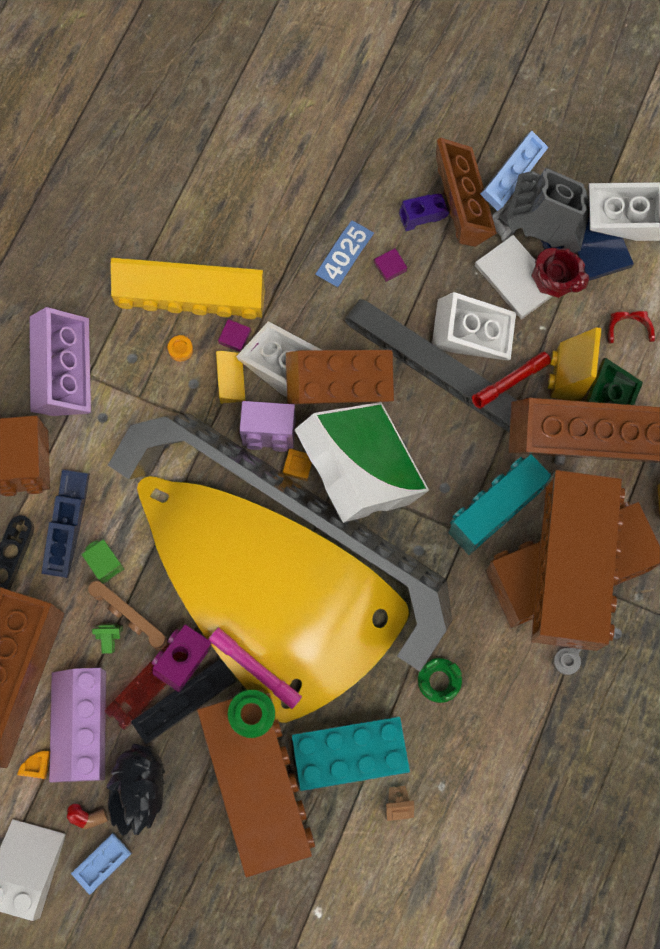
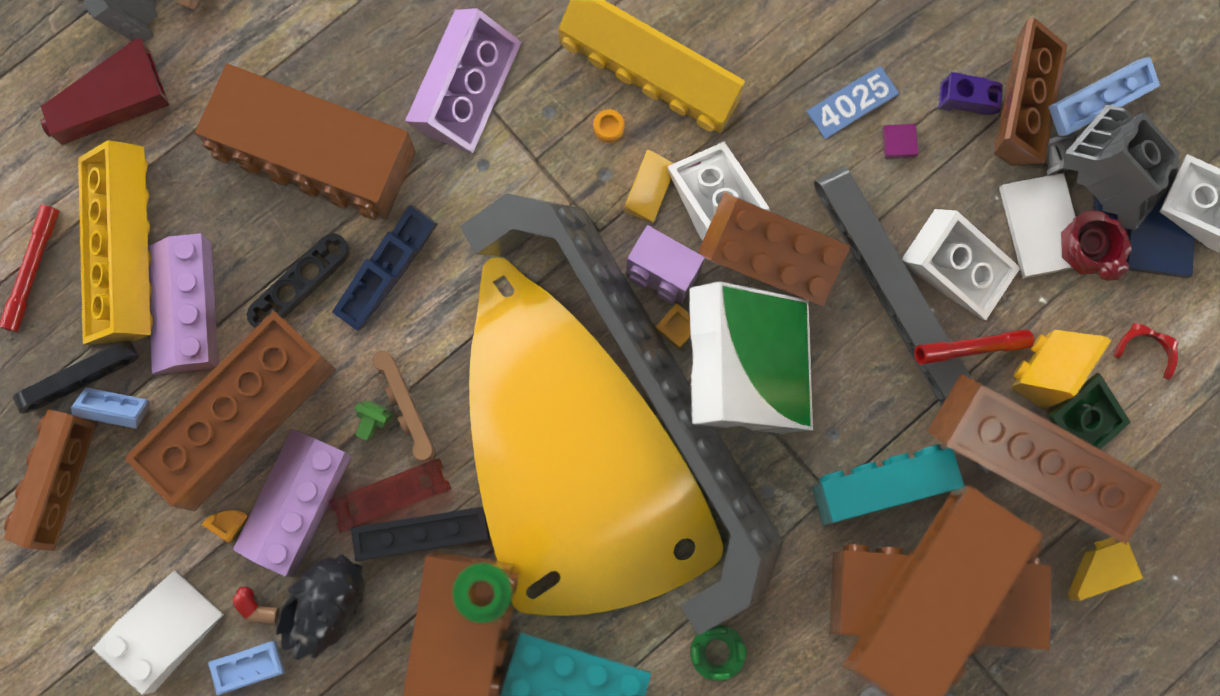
camera: 25 degrees right, 5 degrees up
(102, 561) = (405, 330): bright green brick -> none
(178, 673) = (427, 501): magenta brick -> none
(234, 335) = (677, 140): magenta tile -> none
(278, 687) = (530, 570): dark pink piece -> none

